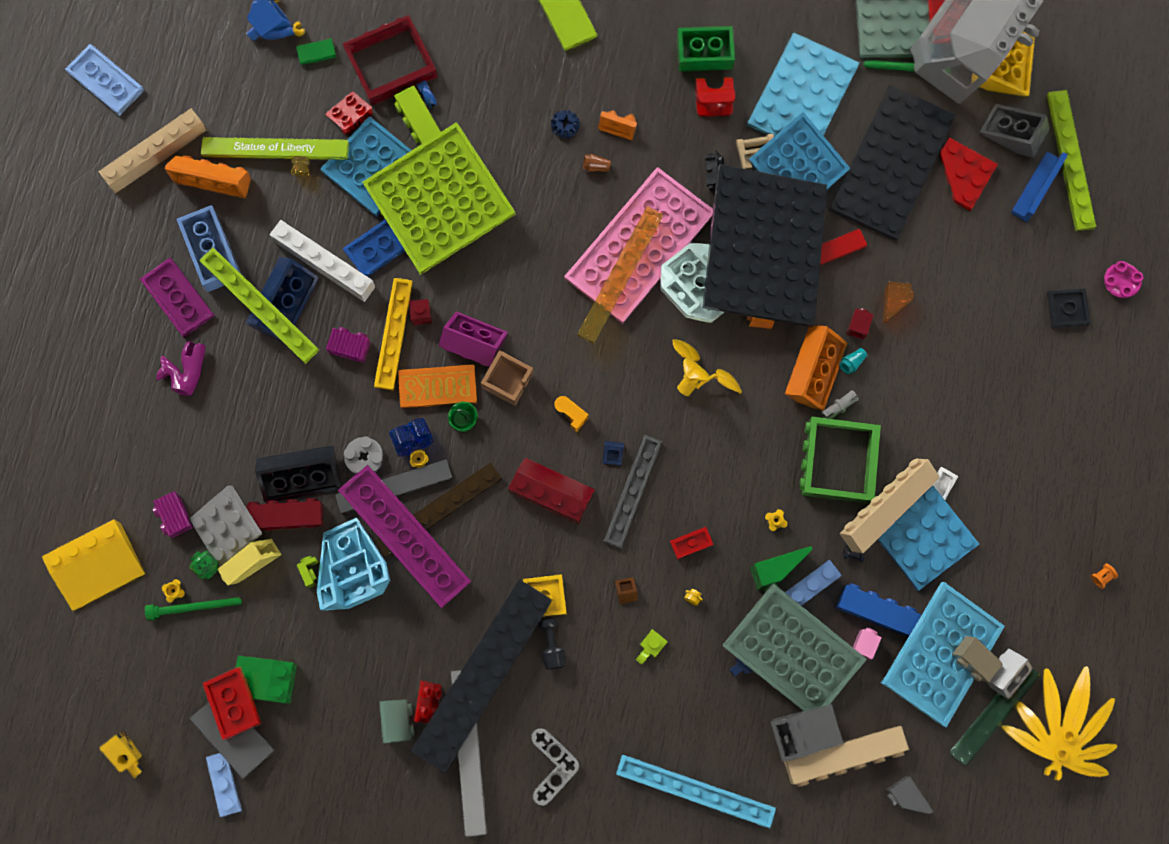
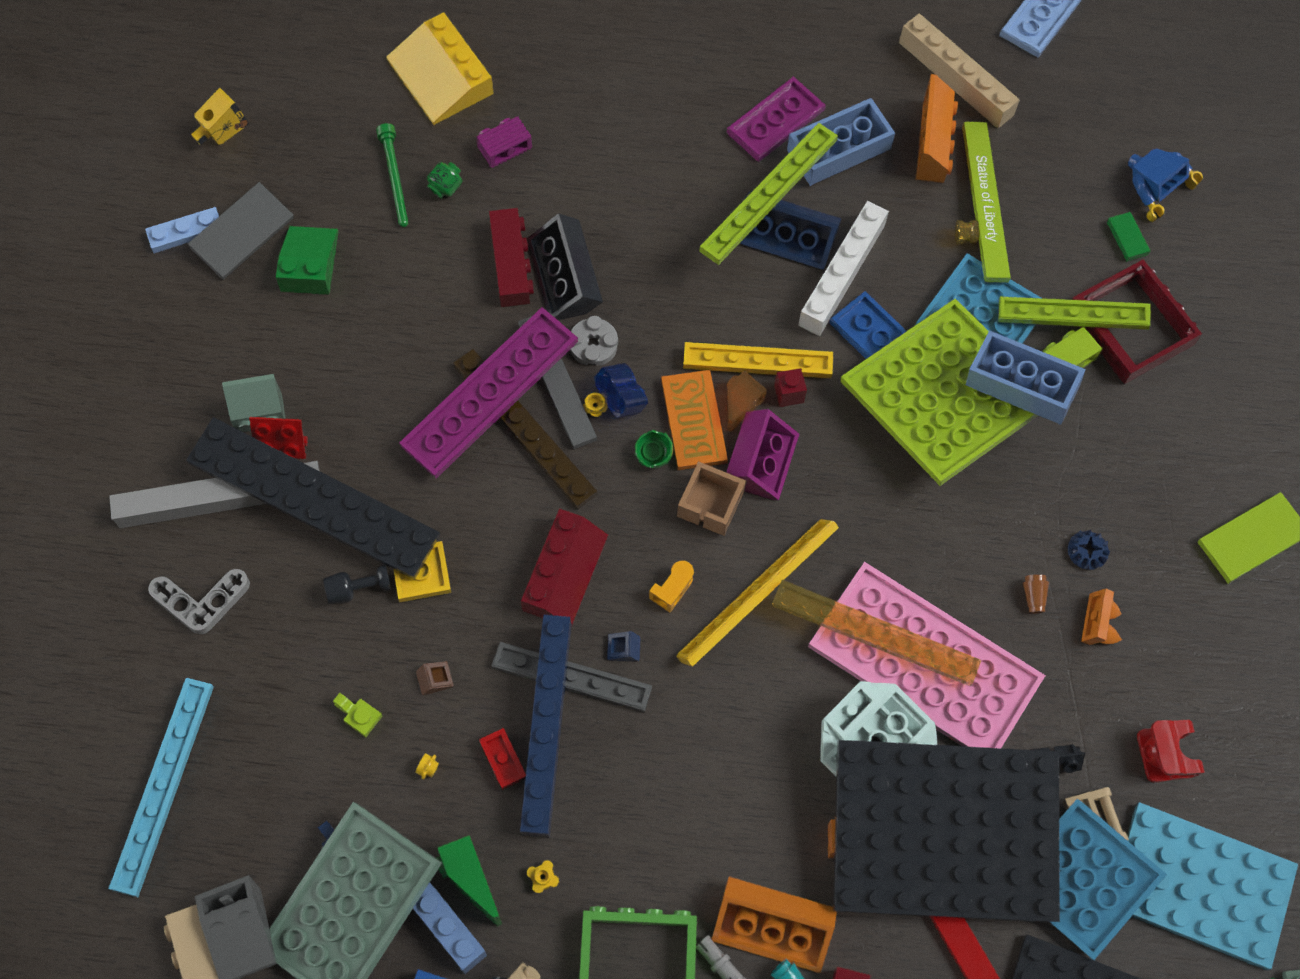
camera: 85 degrees right, 10 degrees down
(167, 589) = (413, 147): yellow plate -> none
(192, 361) = (696, 140): magenta piece -> none
(225, 525) = (491, 194): light grey plate -> none
(231, 703) = (275, 221): red plate -> none
(248, 561) = (451, 226): light yellow slope -> none
(308, 574) = (439, 289): lime bracket -> none
(348, 345) = (735, 309): magenta brick -> none
(349, 568) = (445, 333): medium azure wedge -> none
(350, 111) = (1050, 279): hinge -> none
(383, 100) = (1074, 313): none -> lime tile
(425, 349) = (742, 396): none -> clear orange slope
(428, 96) = (1094, 370): blue arm -> none
(442, 139) = (1025, 377): none -> medium blue brick
(580, 353) = (756, 592): none -> yellow tile
(672, 509) = (546, 727): none -> dark blue brick
(695, 373) = (731, 735): yellow plant -> none
(705, 48) = (1241, 730): green brick -> none

